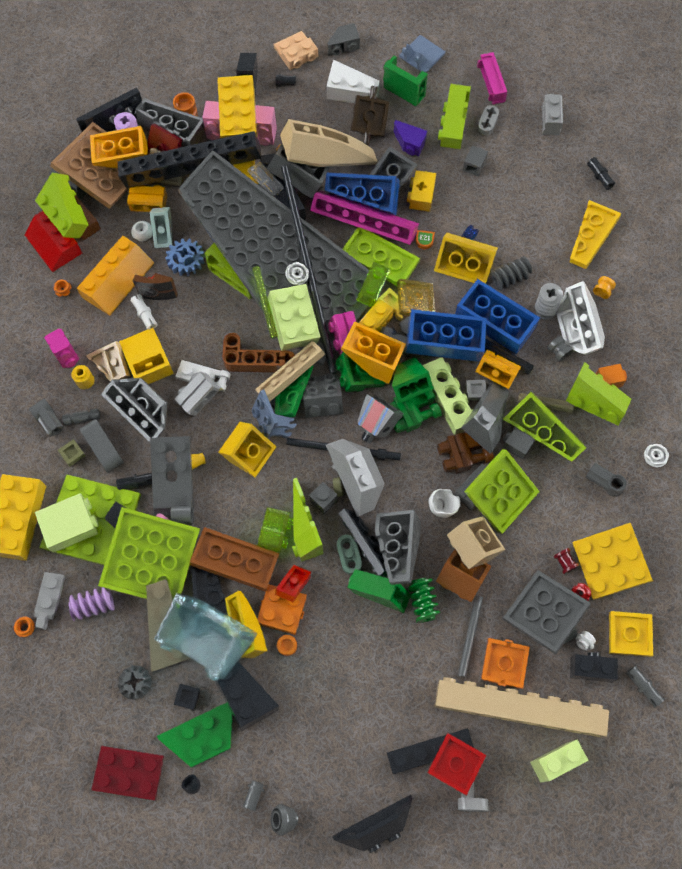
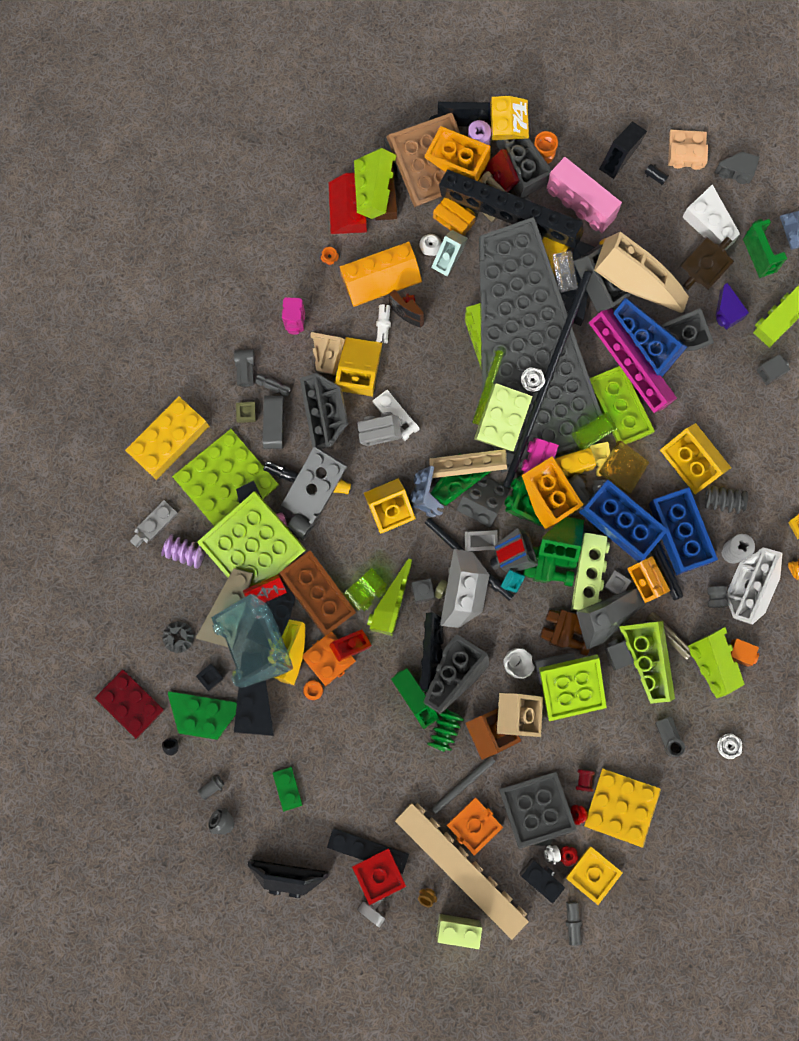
camera: 35 degrees right, 10 degrees up
(18, 627) = (115, 534): orange plate -> none
(67, 522) = (205, 472): yellowish green brick -> none
(82, 377) = (295, 356): yellow brick -> none
(141, 97) = (509, 118): none -> yellow slope
(187, 259) = (451, 286): medium blue gear -> none
(188, 583) = (267, 589): none -> red tile
(236, 105) = (585, 185): yellow brick -> none
(260, 357) = (453, 430): dark orange beam -> none
(323, 747) = (287, 789): none -> green plate
(343, 426) = (480, 540): none -> light grey slope
(348, 555) = (411, 651): sand green plate -> none
(392, 441) = (512, 581): none -> teal tile
(422, 190) = (710, 359): yellow brick -> none
(424, 239) = (673, 415): tile -> none
(470, 232) = (717, 437): clear blue bush -> none
(510, 754) = (427, 897): none -> pearl gold plate
(604, 632) = (573, 855): none -> red plate

